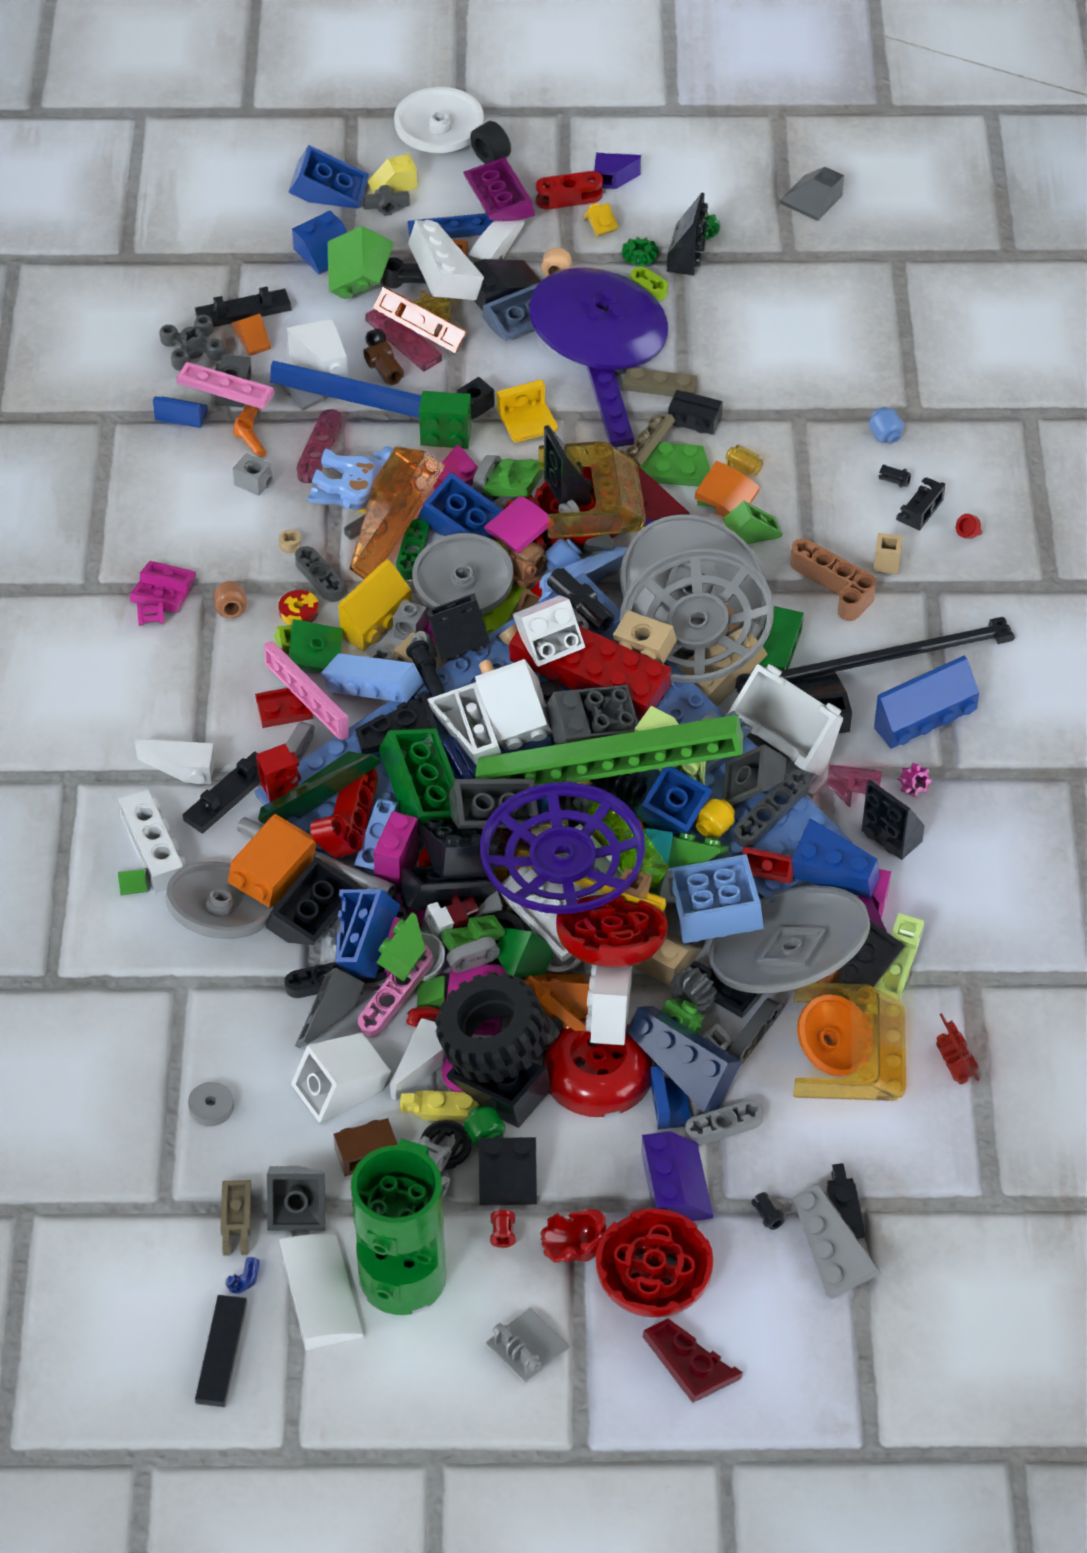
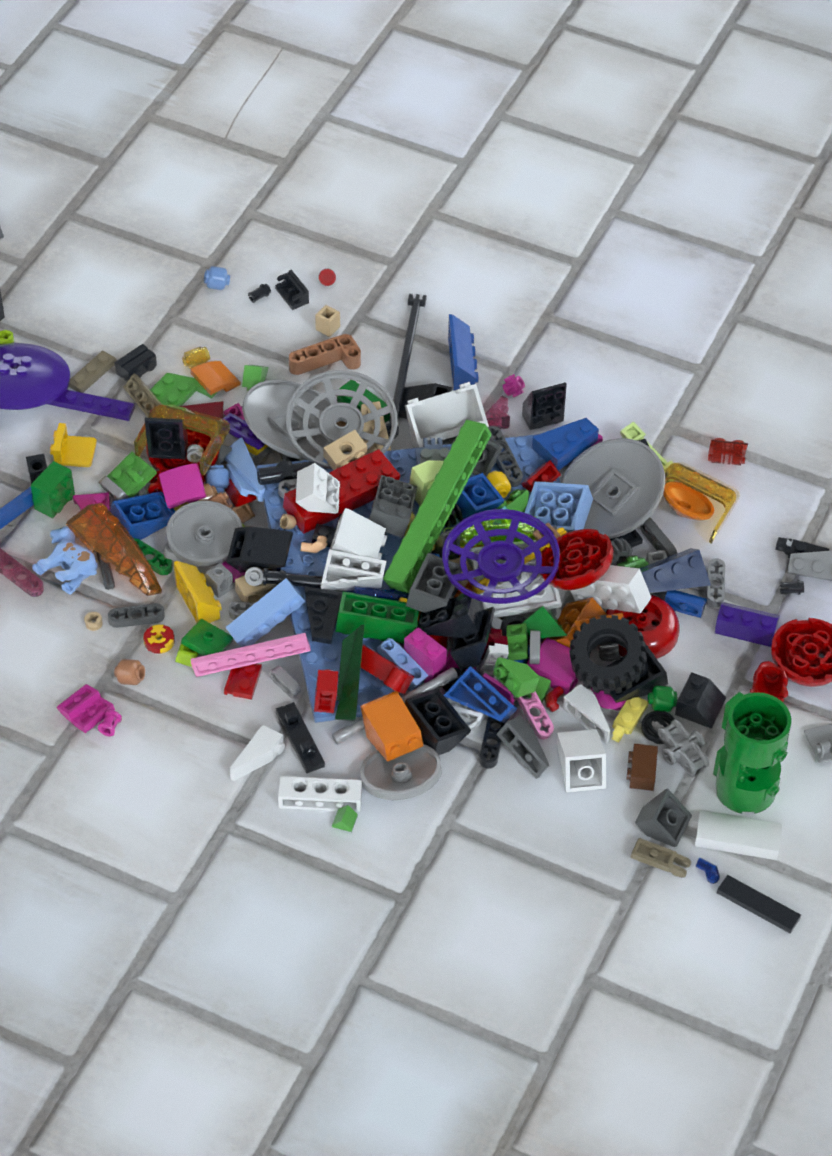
camera: 65 degrees left, 0 degrees up
(215, 1113) = (556, 848): light grey piece -> none
(252, 474) = (19, 617): light grey brick -> none

